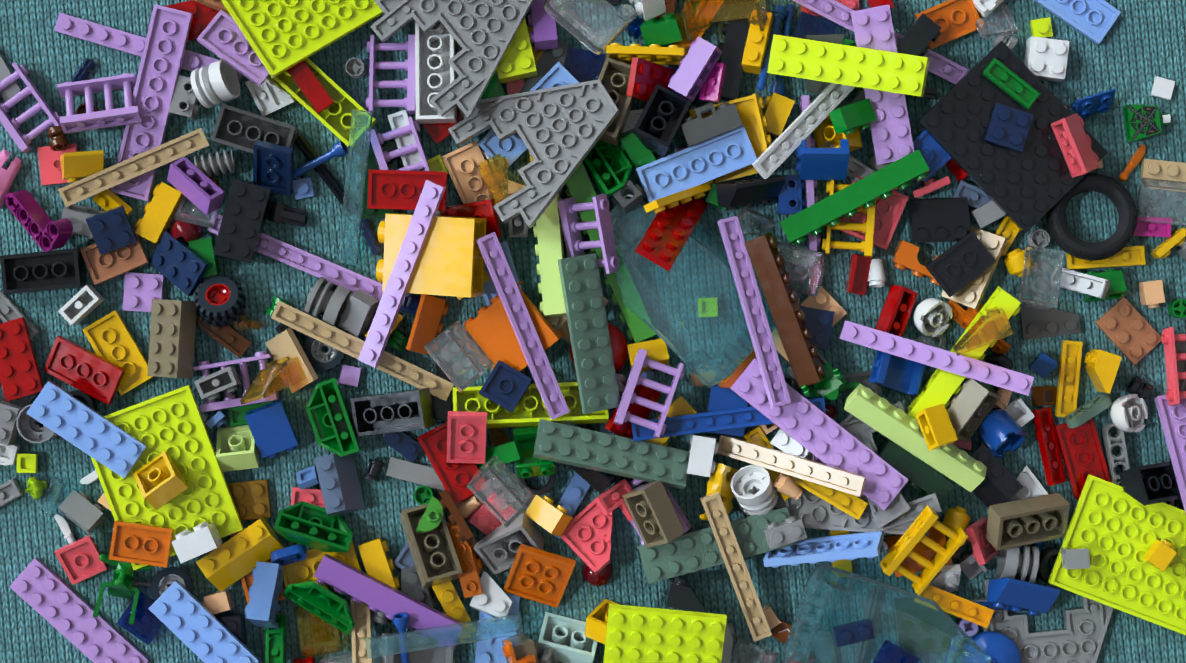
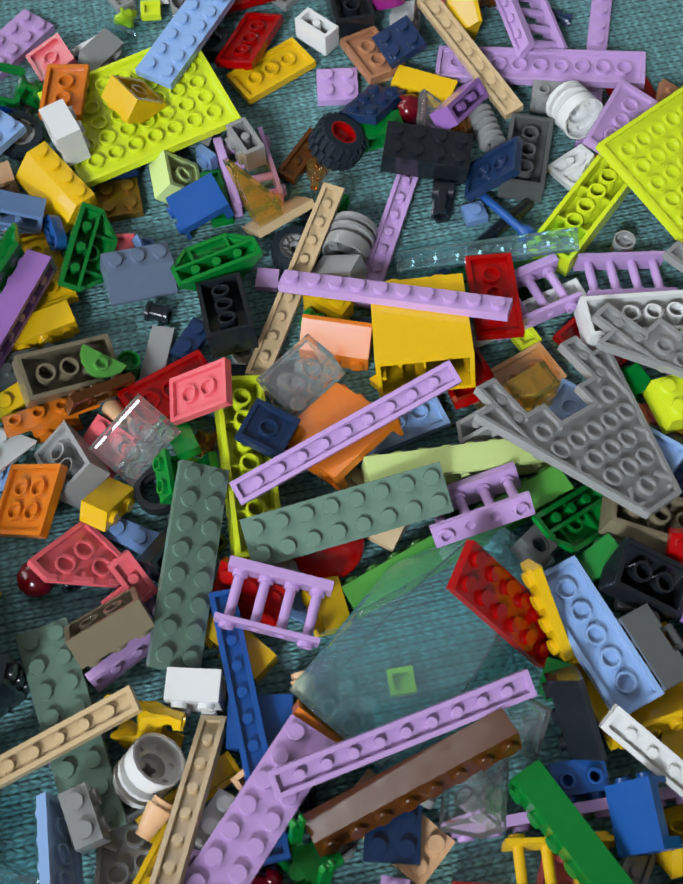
camera: 85 degrees right, 25 degrees down
(109, 200) = (432, 41): yellow plate -> none
(172, 339) = (288, 104): dark tan brick -> none
(310, 86) = (594, 192): red tile -> none

